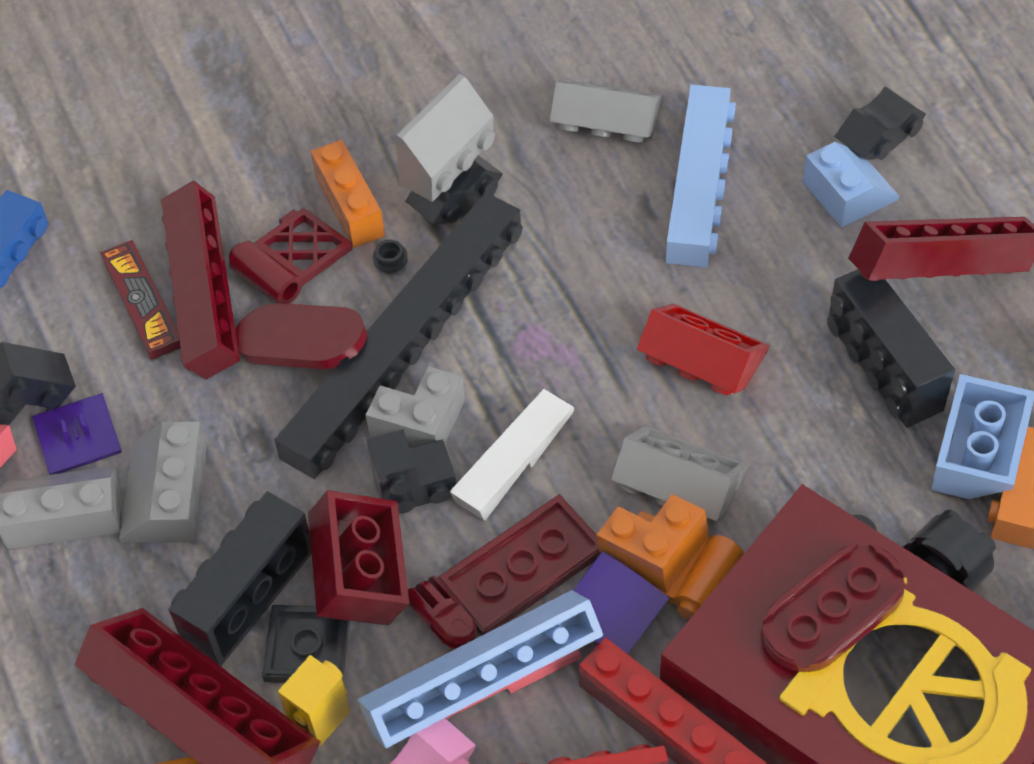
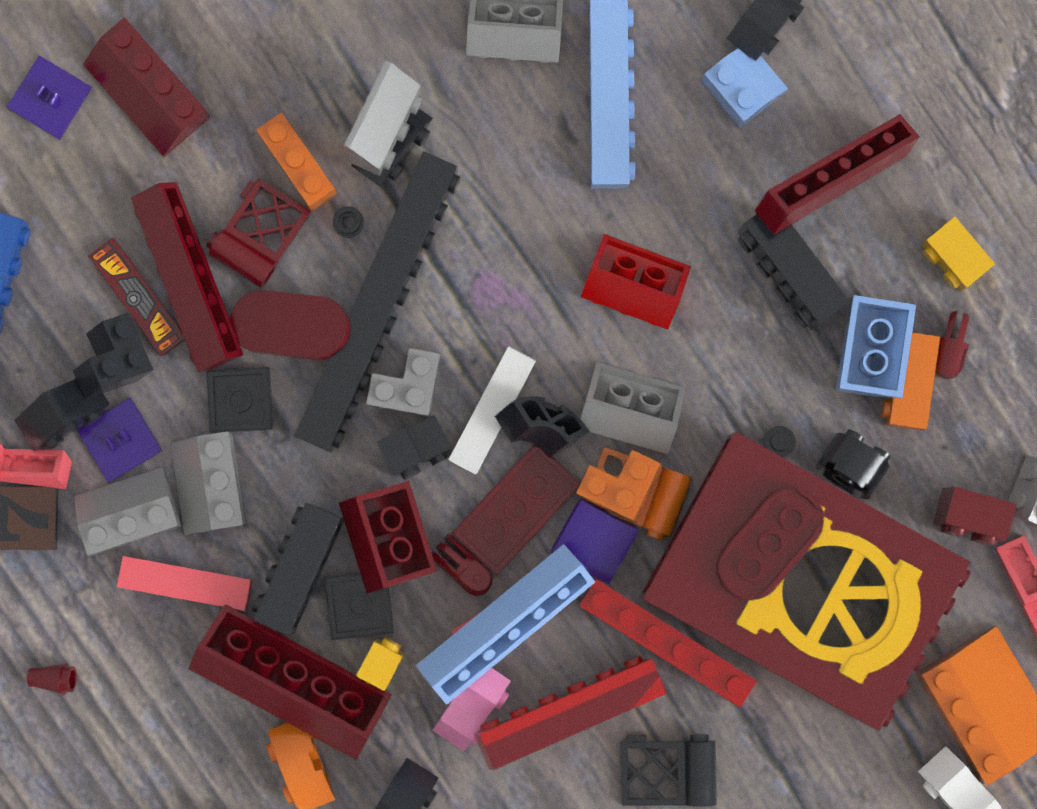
camera: 20 degrees left, 30 degrees up
(92, 342) = (118, 357): none -> black brick
(96, 582) = (184, 583): none -> coral slope
(107, 120) = (49, 97): none -> dark purple piece
(208, 116) = (145, 87): none -> dark red slope
(227, 409) = (239, 400): none -> black tile
(575, 470) = (541, 423): none -> black brick

